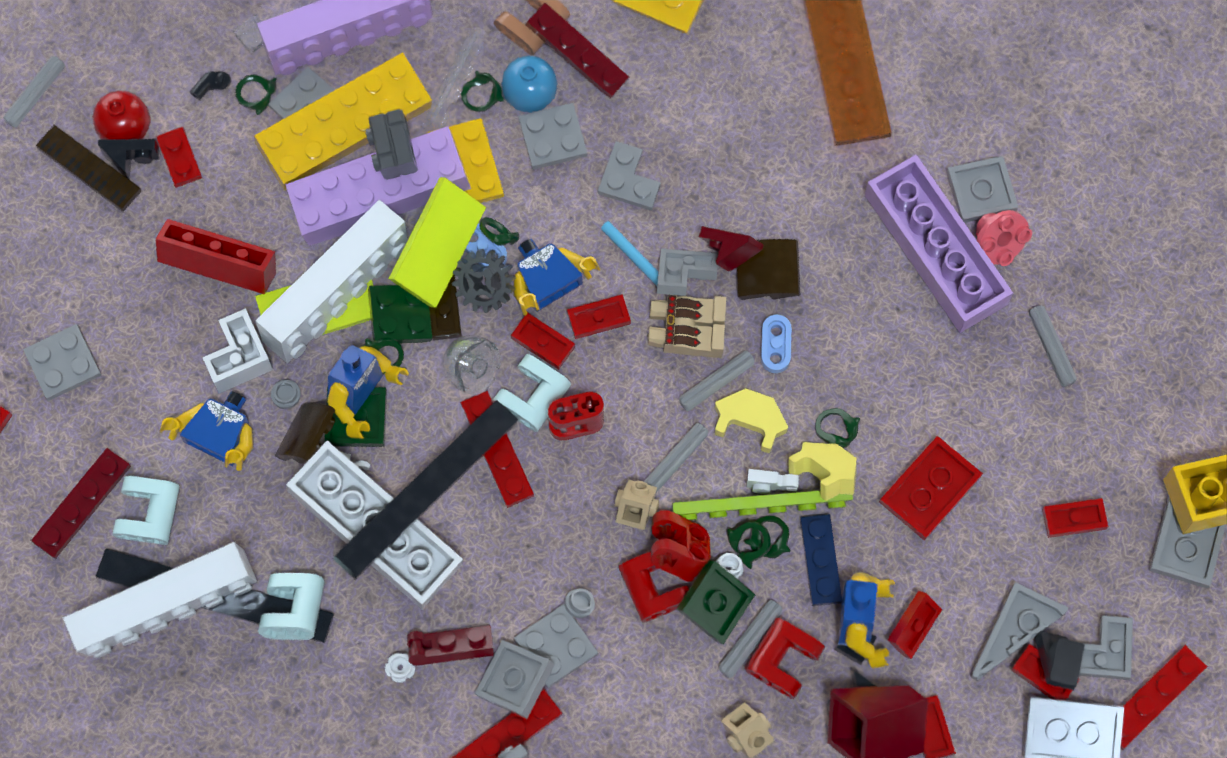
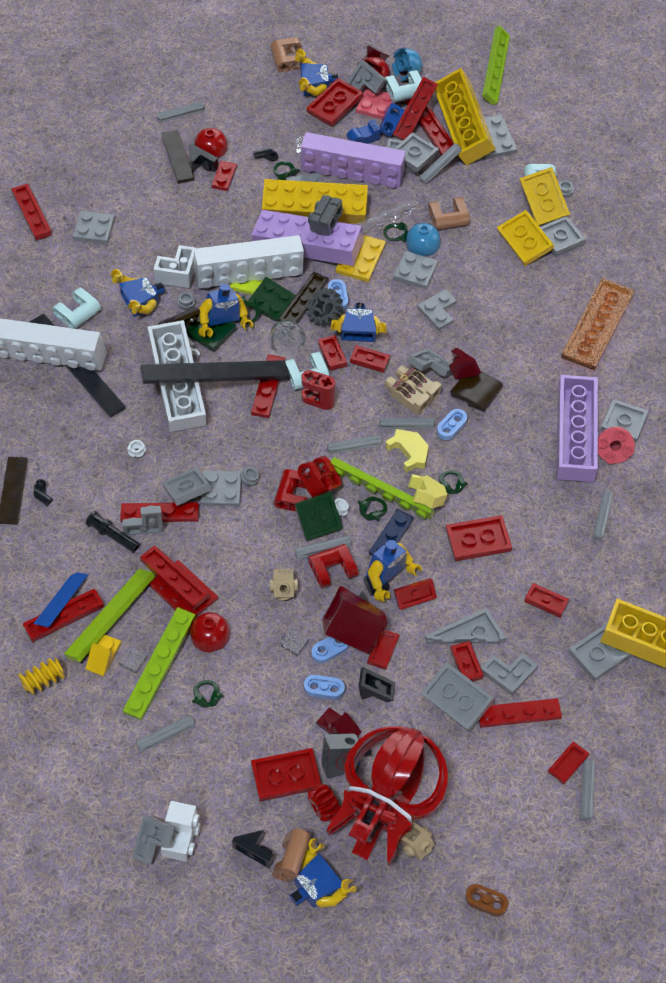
camera: 35 degrees right, 15 degrees down
(80, 503) = (49, 289): dark red plate -> none
(215, 256) = (202, 220): red brick -> none
(306, 593) = (116, 387): light aqua connector -> none
(437, 242) = (314, 273): neon yellow tile -> none
(449, 645) = (168, 454): dark red plate -> none
(498, 239) = (350, 294): dark green piece -> none
(577, 50) = (459, 238): dark red plate -> none
(636, 504) = (314, 447): tan brick -> none
(641, 262) = (411, 337): medium azure bar -> none
(749, 557) = (353, 497): dark green piece -> none
(764, 481) = (393, 479): white plate -> none
(1060, 659) = (478, 655): black slope -> none

